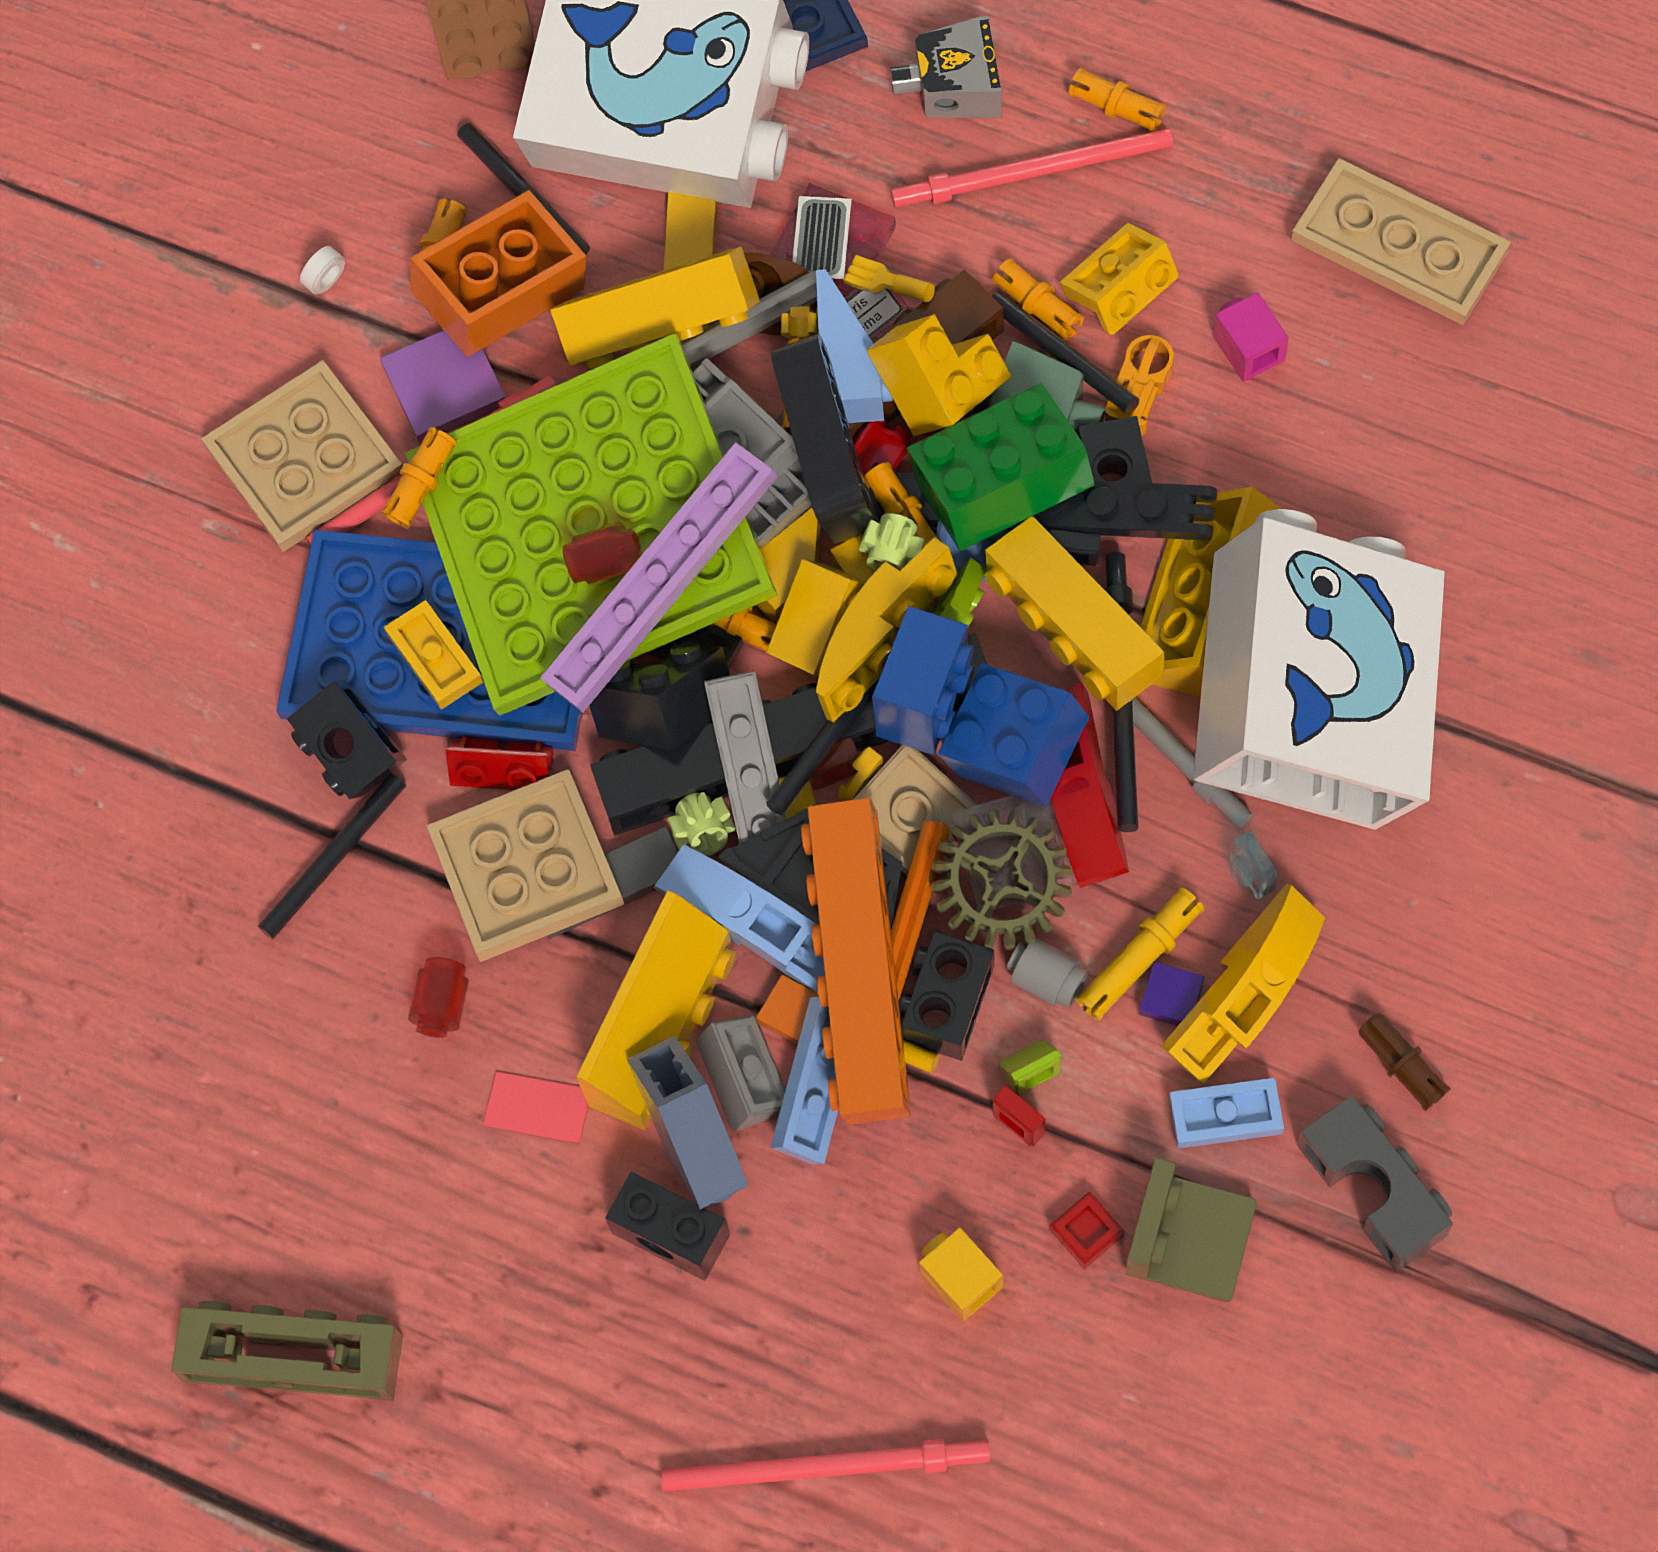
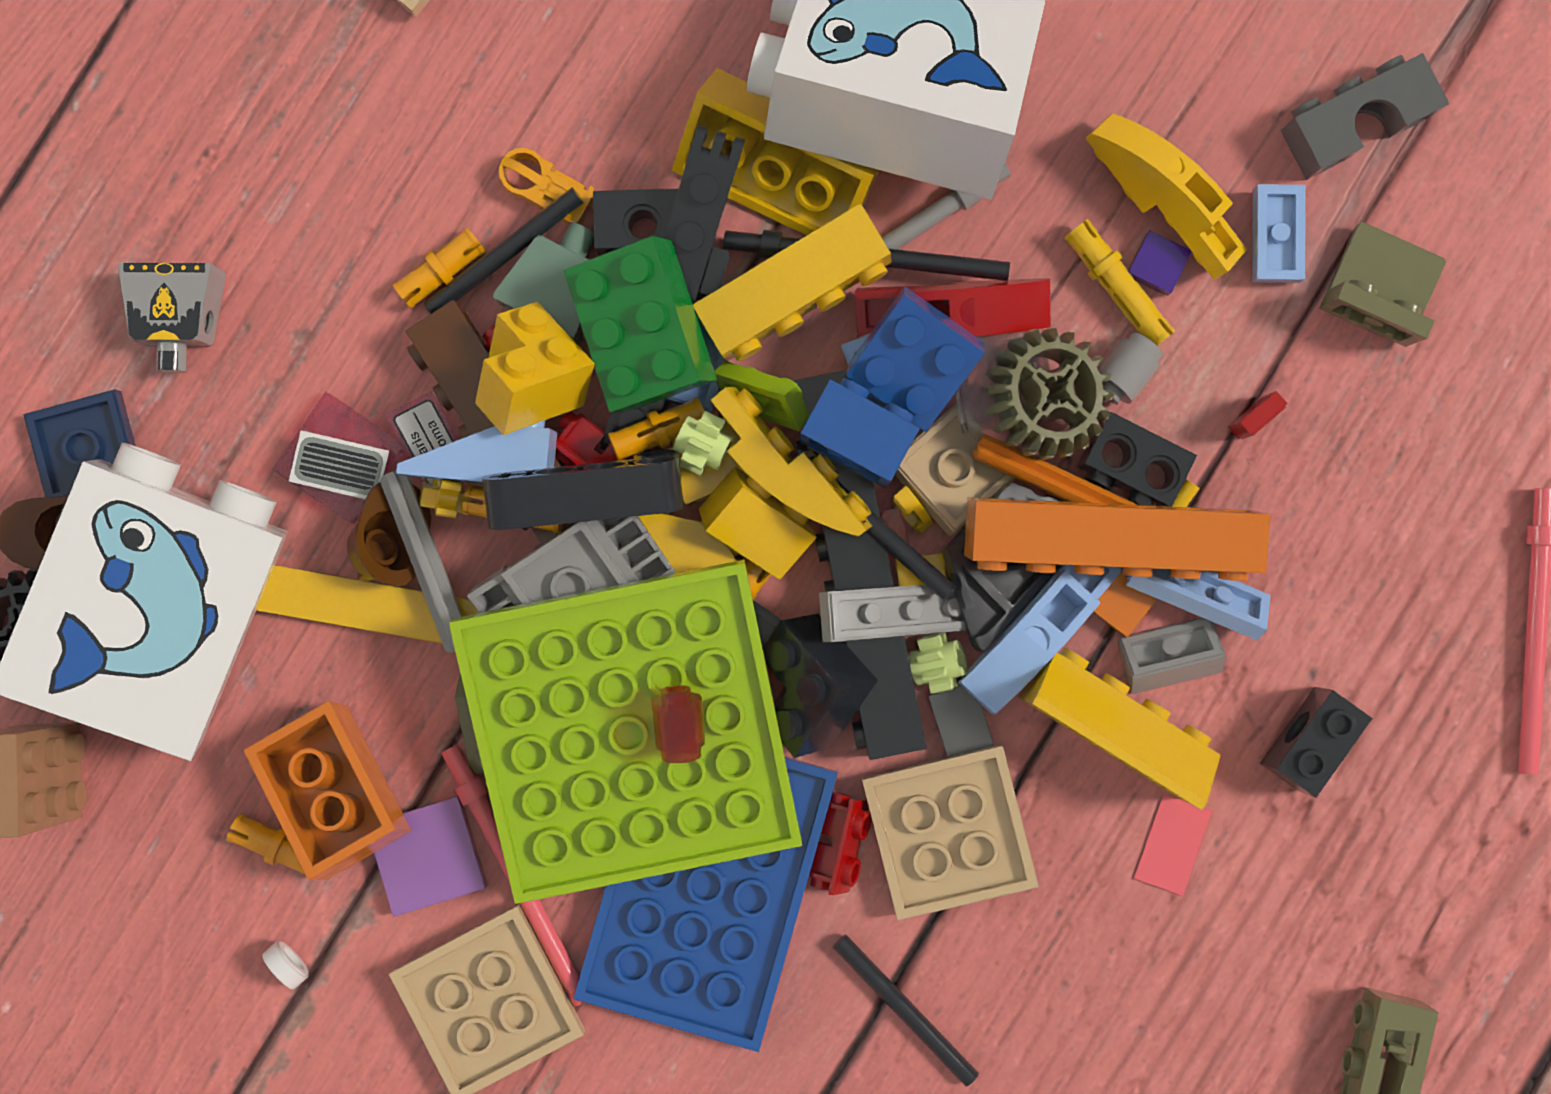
camera: 85 degrees left, 20 degrees up
(373, 750) = (781, 987): black brick -> none
(419, 477) = (551, 894): light orange pin -> none
(433, 654) = (733, 897): yellow plate -> none
(439, 997) = (1067, 925): clear red brick -> none
(510, 176) = (223, 756): black bar -> none
(655, 307) = (399, 637): yellow brick -> none
(659, 577) = (713, 670): lavender plate -> none
(688, 1122) = (1248, 713): sand blue brick -> none
(875, 277) = (396, 417): yellow piece -> none
(941, 187) = (298, 341): coral bar -> none
(960, 1273) = (1392, 489): yellow brick -> none
(1031, 1066) = (1207, 398): lime slope -> none
(1086, 1230) = (1360, 374): red tile -> none
(1117, 99) = (231, 154): light orange pin -> none
(1121, 276) = (428, 184): yellow bracket -> none
(1250, 336) = (515, 72): dark pink brick -> none
(1252, 866) = (1054, 168): clear light blue plate -> none
(1403, 1061) = (1255, 70): reddish brown axle -> none

